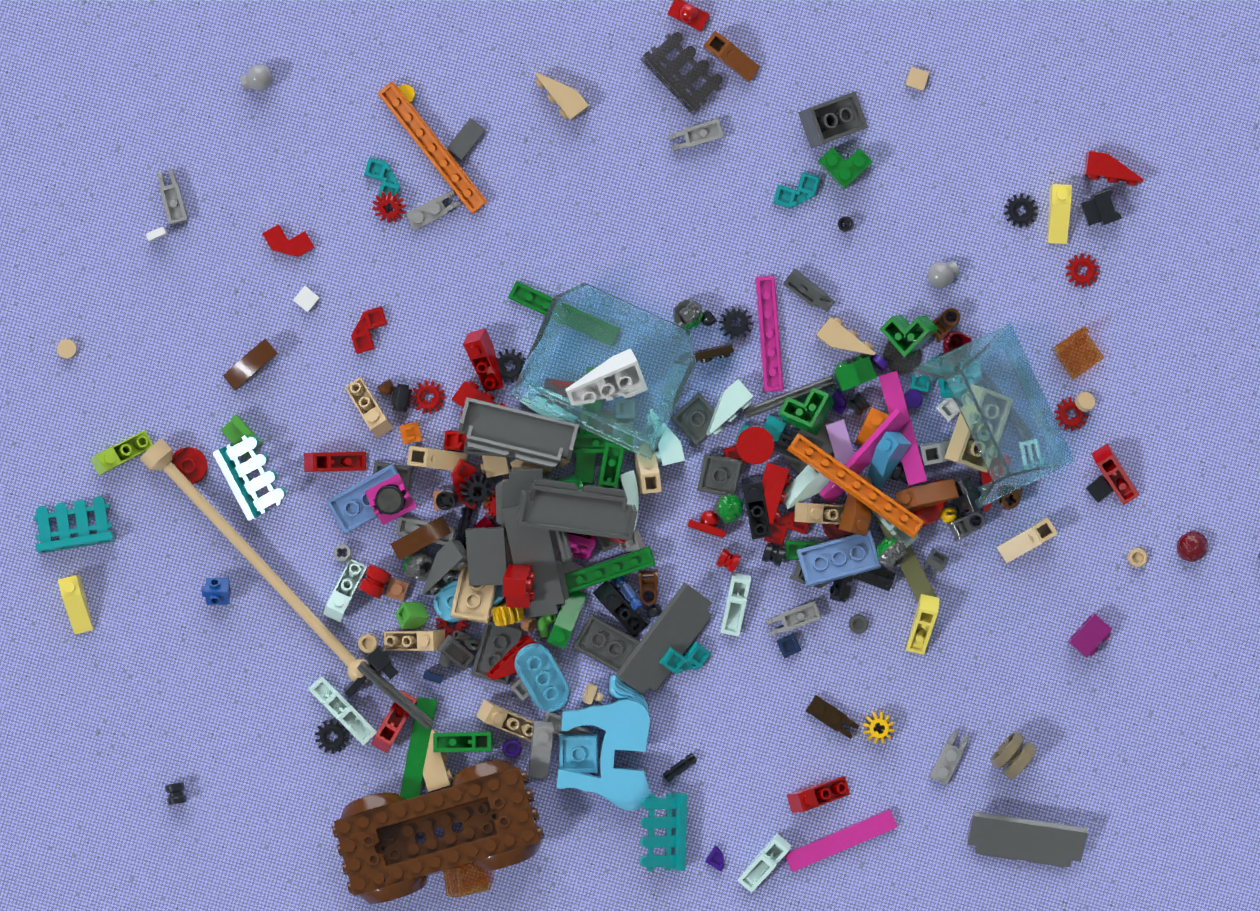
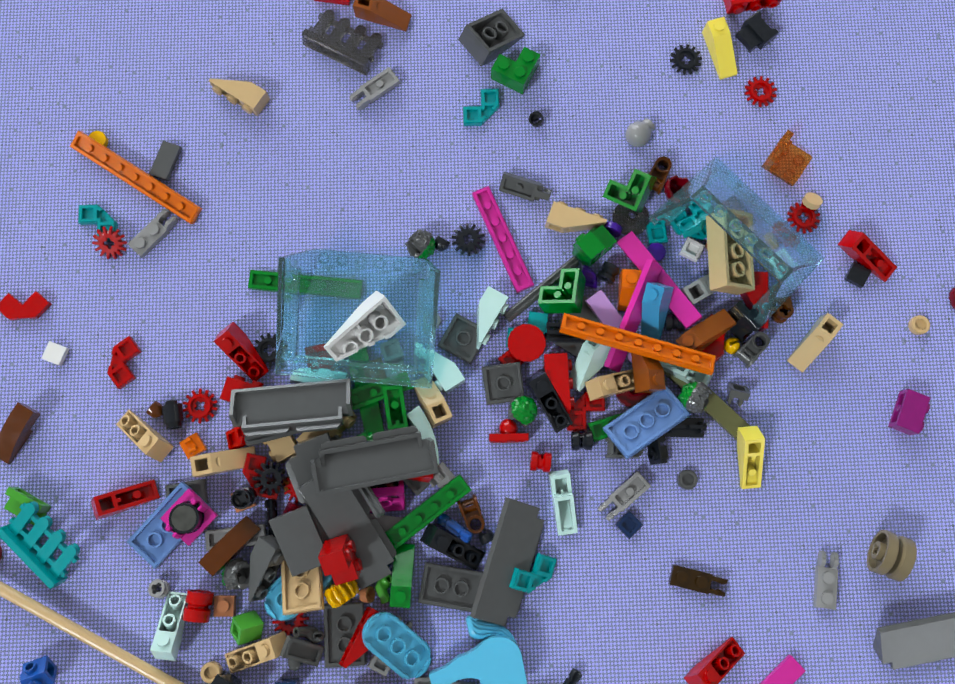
camera: 25 degrees left, 10 degrees down
(591, 693) = (452, 644): tan tile -> none
(722, 351) = (451, 275): dark brown hinge -> none
(874, 733) = (752, 582): yellow gear -> none

